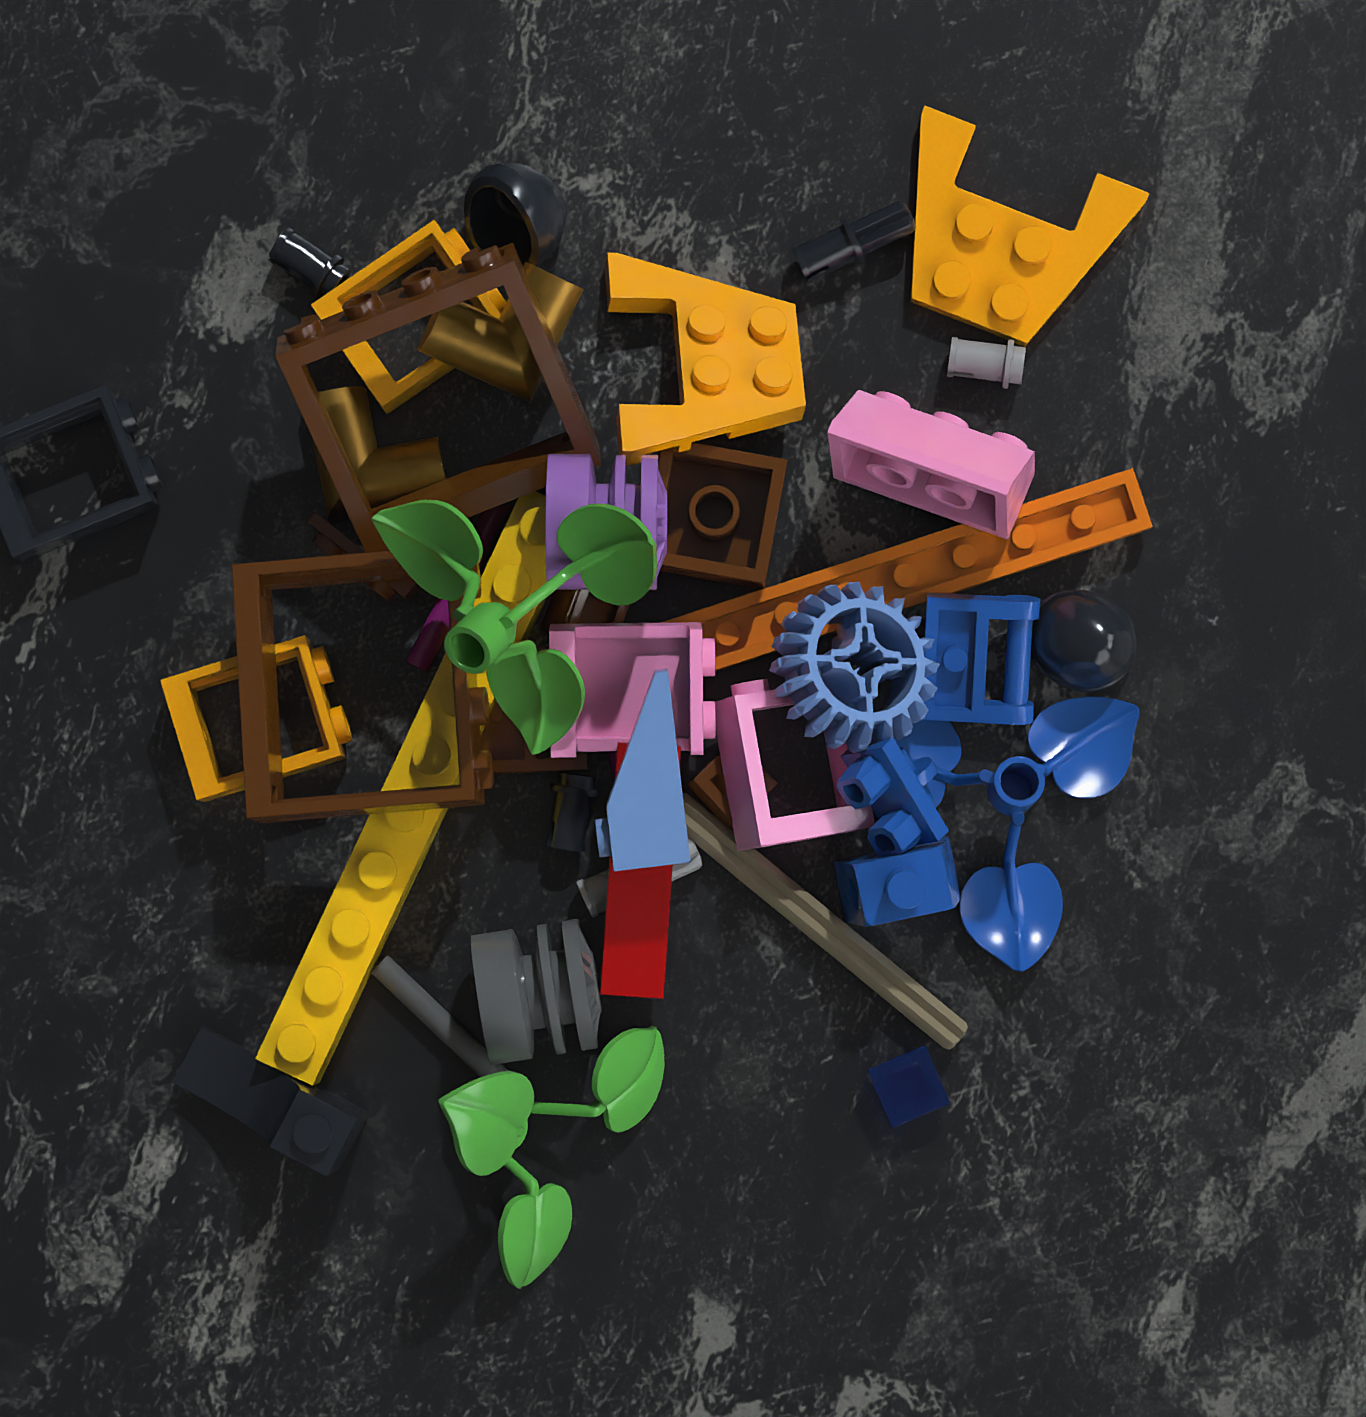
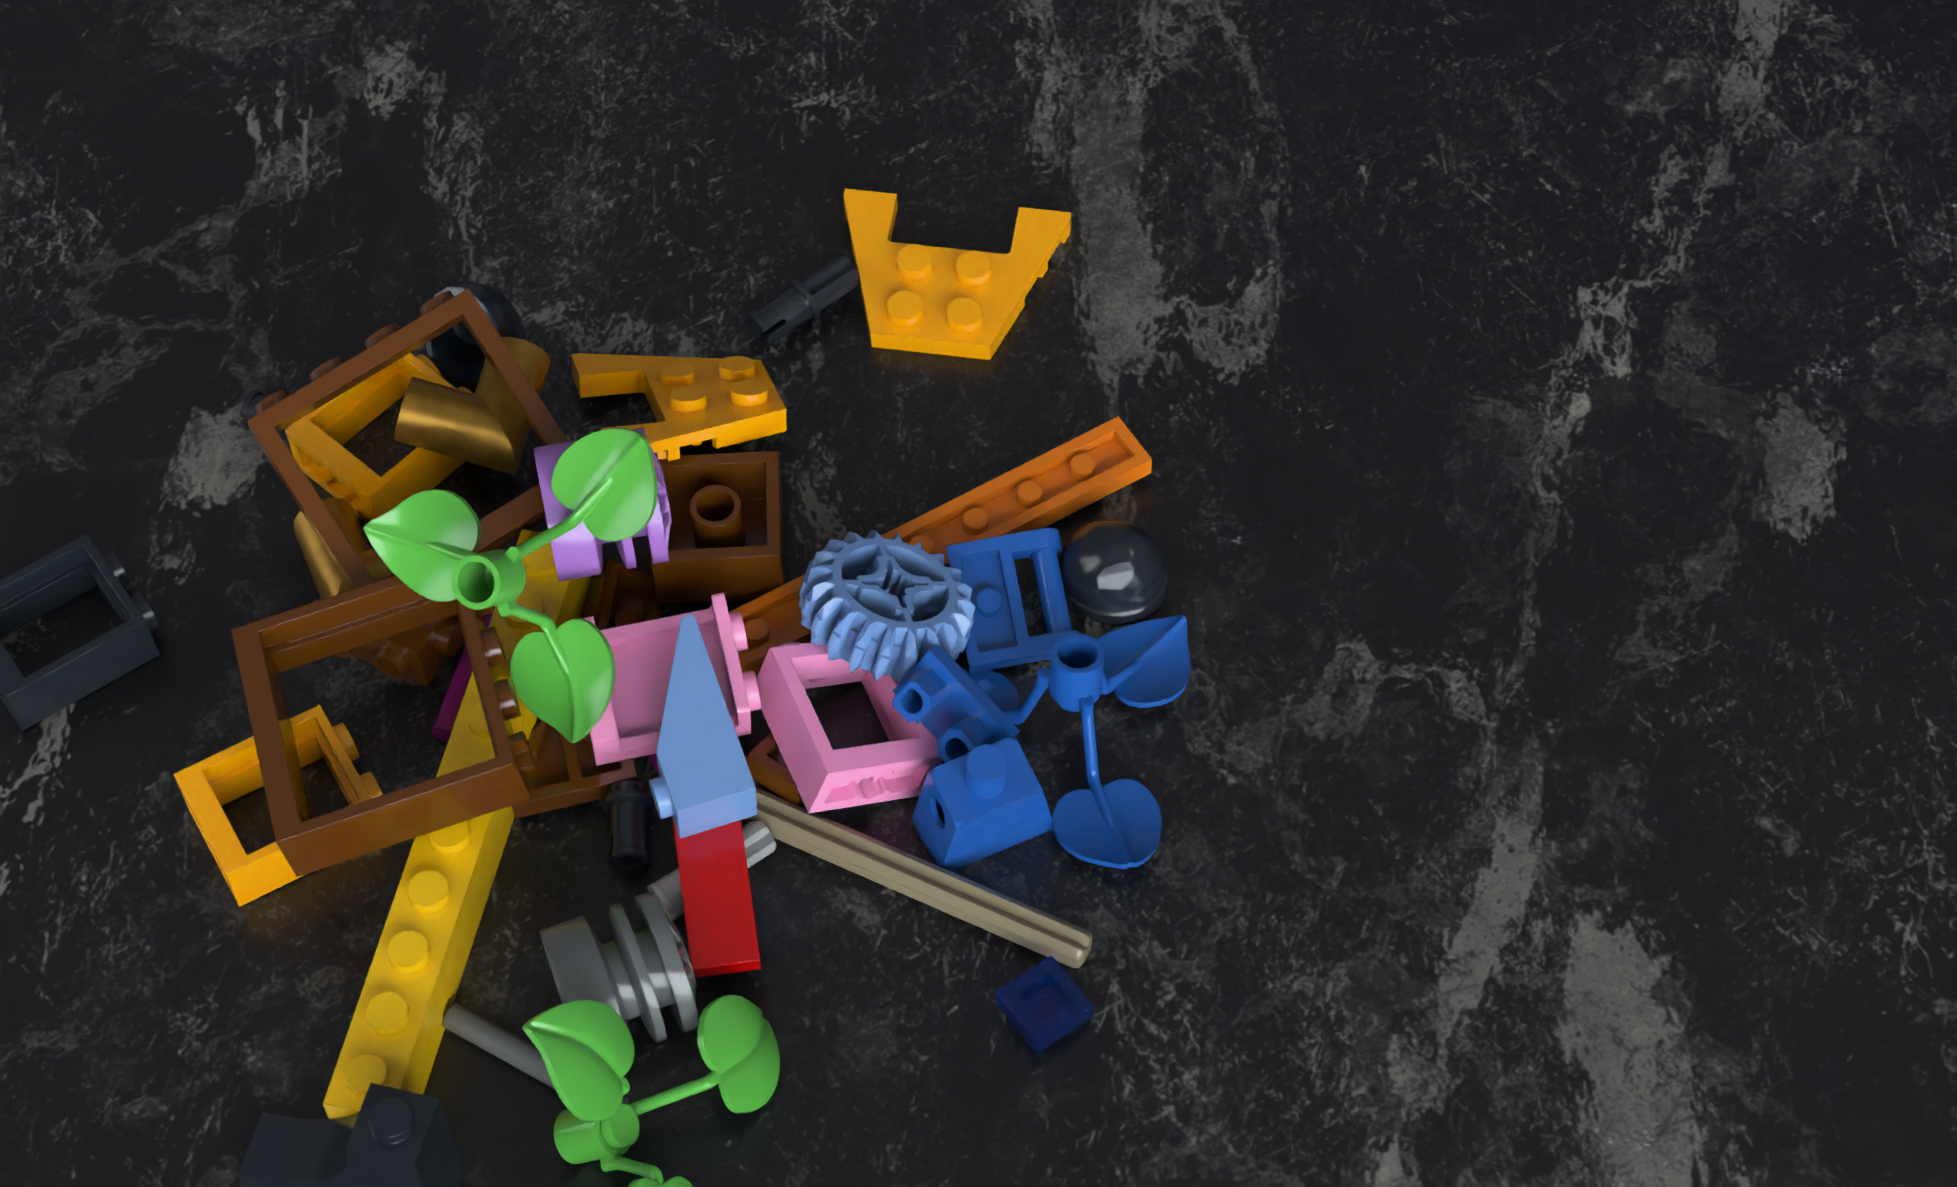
camera: 15 degrees left, 30 degrees down
(931, 461) = (919, 439): bright pink slope -> none
(986, 361) = (955, 368): light grey pin -> none

